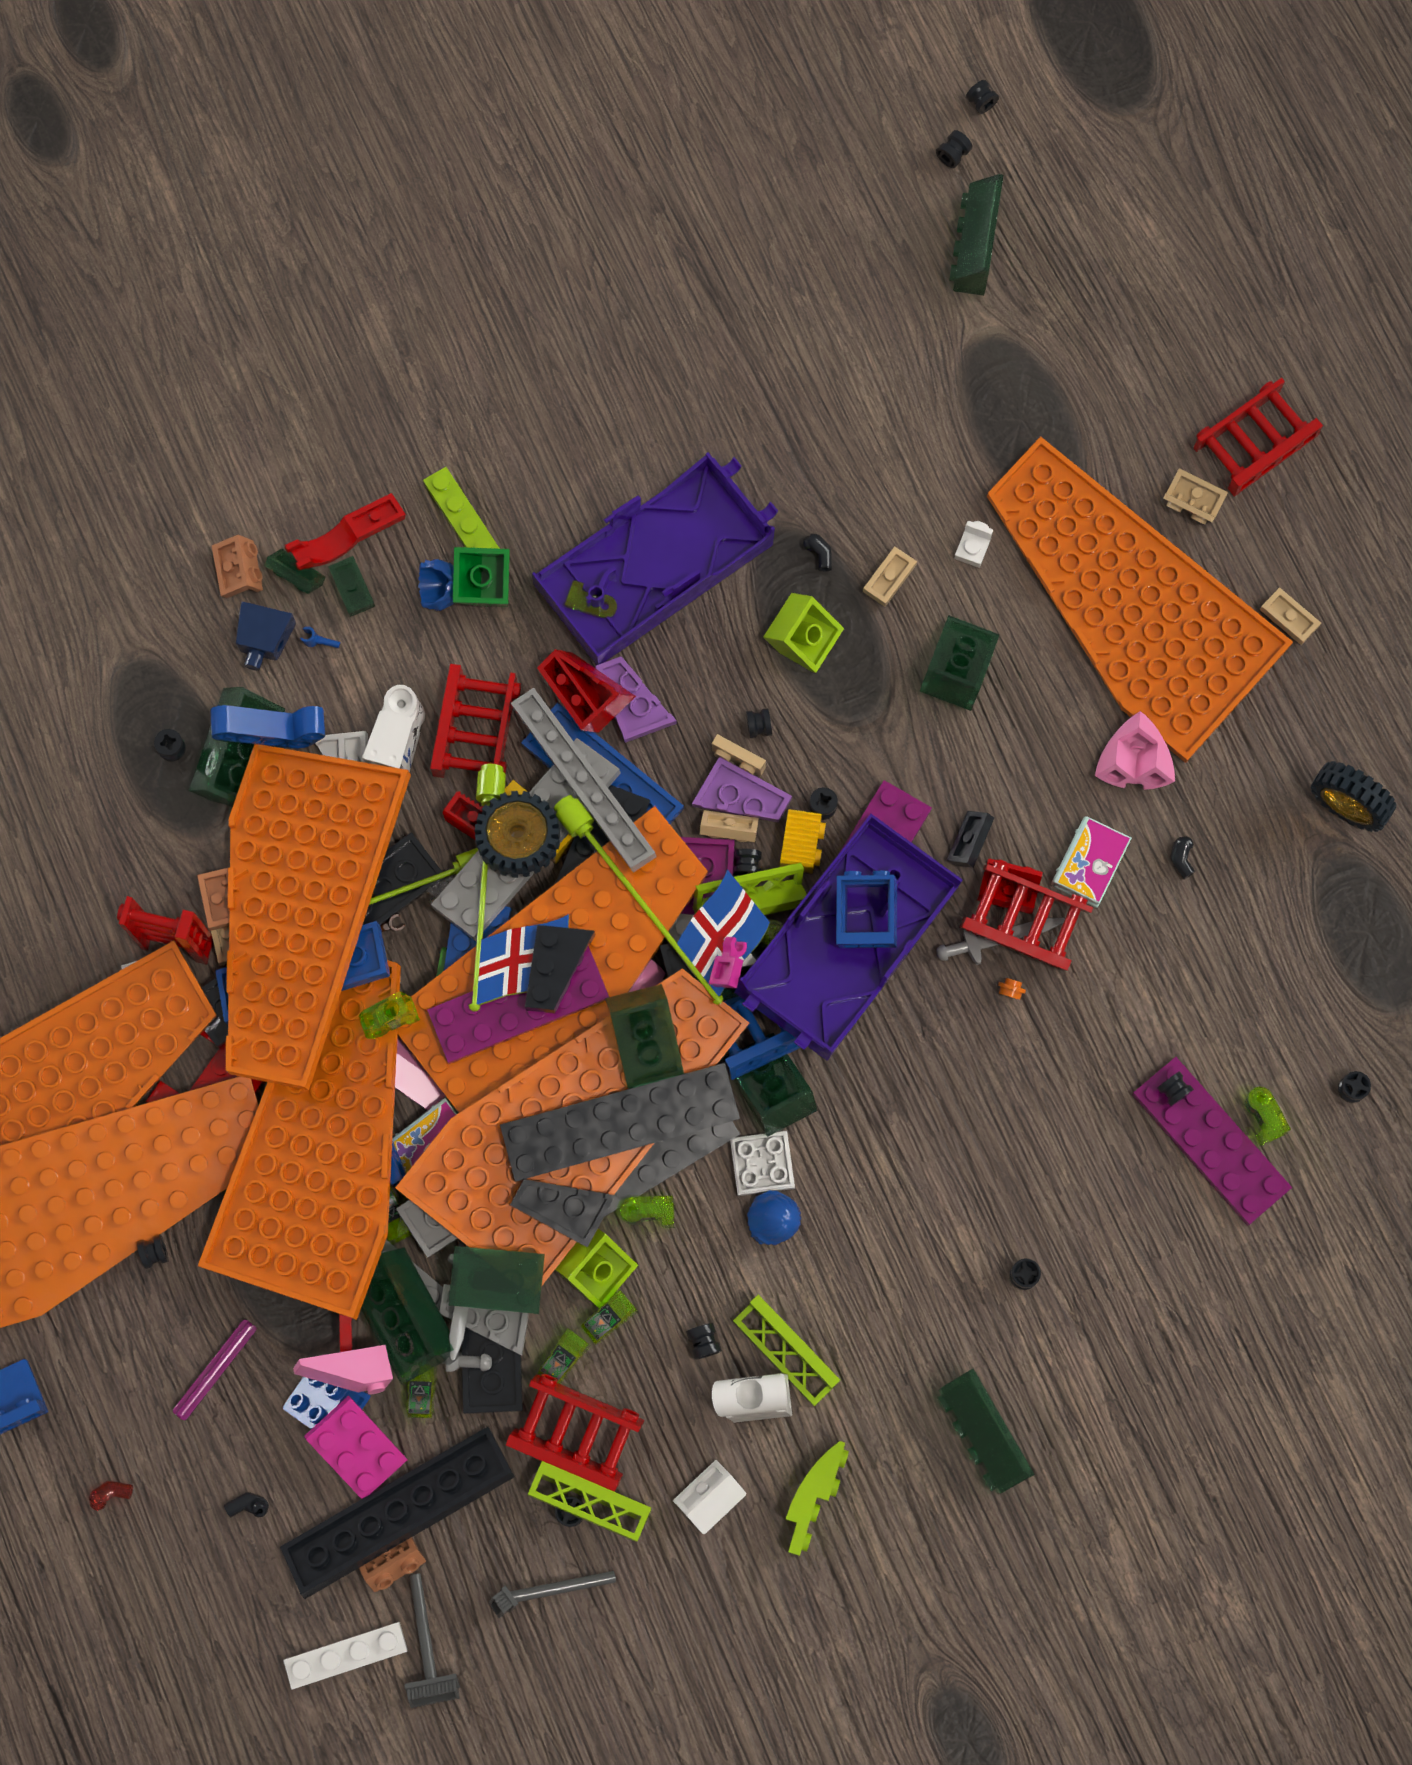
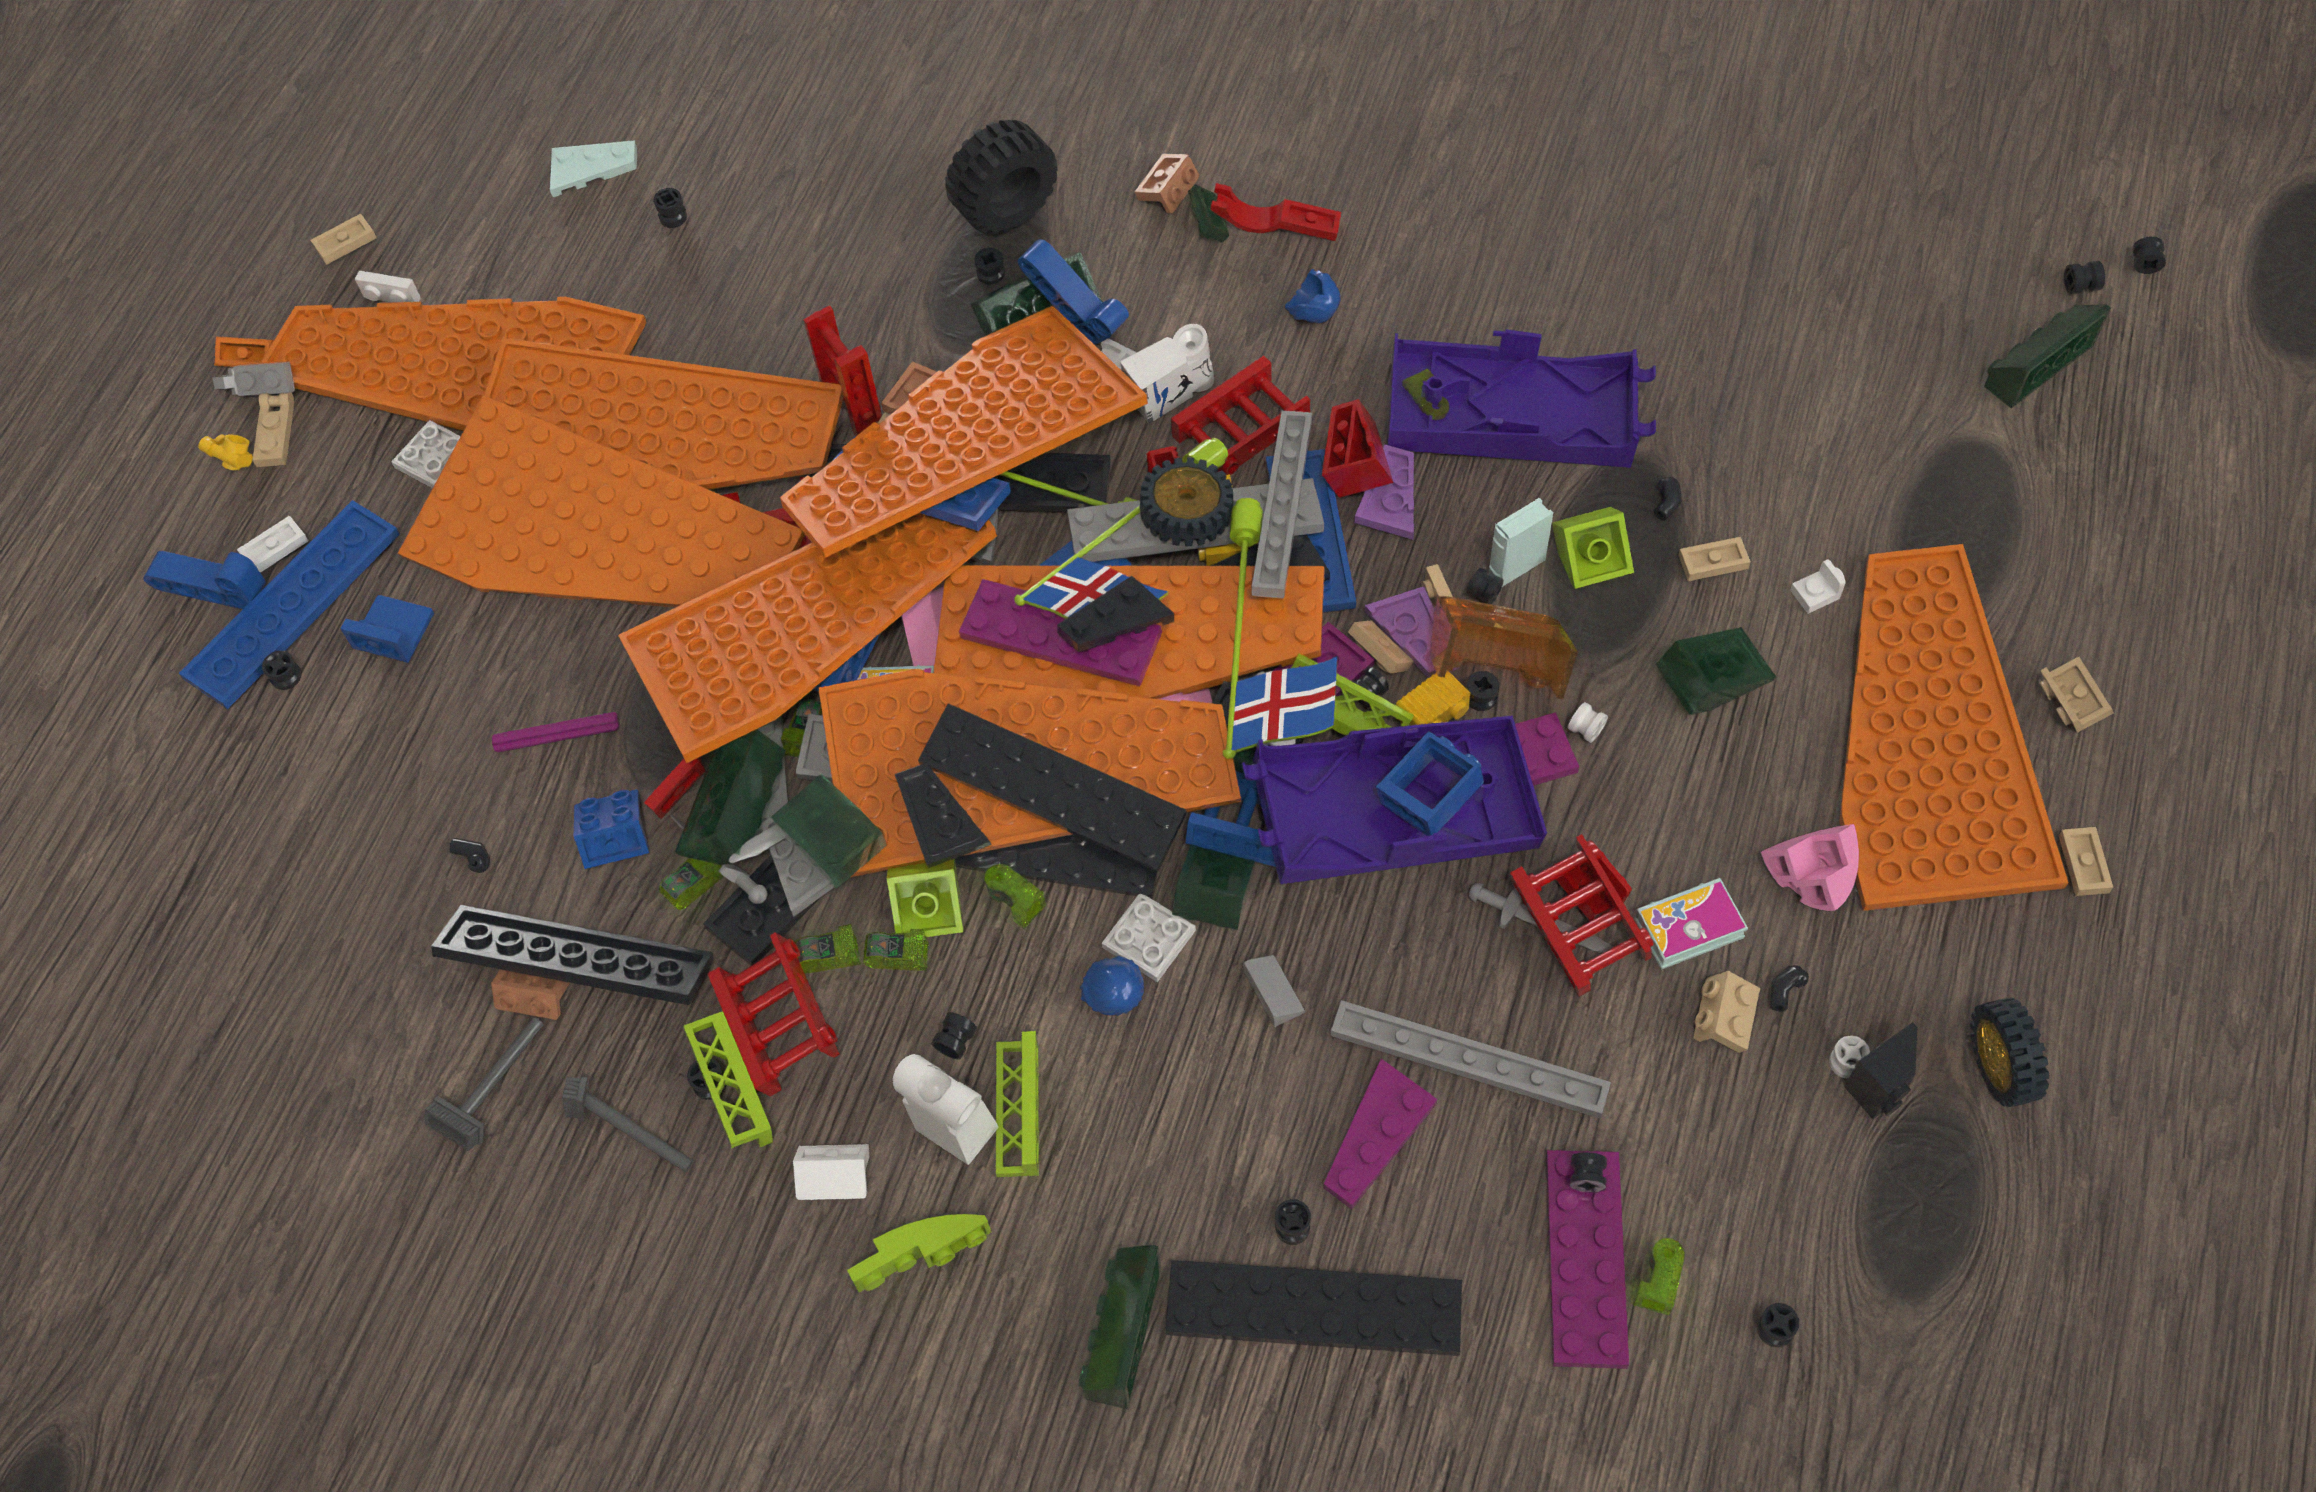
camera: 45 degrees right, 15 degrees down
(109, 1489) = (390, 755): clear red arm -> none
(123, 671) = (1001, 176): none -> black tyre
(152, 1251) = (601, 606): black wheel -> none
(262, 633) = (1139, 238): dark blue torso -> none
(315, 639) = (1176, 272): blue hand -> none
(345, 1655) = (421, 1037): white plate -> none
(351, 586) = (1242, 254): clear green plate -> none
(353, 1370) = (647, 804): bright pink slope -> none
(355, 1447) = (592, 875): dark pink plate -> none
(388, 925) = (1023, 514): reddish brown hand -> none
(388, 1015) = (945, 553): clear neon green leg -> none
(458, 510) = (1382, 270): lime plate -> none
(481, 576) = (1352, 311): green slope -> none
(645, 1036) = (1135, 728): clear green slope -> none
(728, 966) = (1262, 726): dark pink plate -> none
(761, 674) = (1520, 541): none -> light aqua piece
(809, 753) = (1503, 640): none -> clear orange windscreen
(874, 1130) = (1273, 989): none -> light grey slope
(911, 770) = (1587, 722): none -> white wheel
(970, 839) = (1597, 814): black plate -> none
(1011, 988) = (1512, 969): orange plate -> none
(1020, 1162) = (1380, 1128): none -> magenta wing
(1036, 1072) = (1471, 1059): none -> light grey plate
(1081, 1316) = (1314, 1307): none -> black plate
(1161, 905) = (1727, 1011): none -> tan bracket
(1260, 868) = (1847, 1049): none -> white wheel
(1262, 462) = (2187, 716): red fence -> none
(1292, 869) = (1885, 1074): none -> black slope

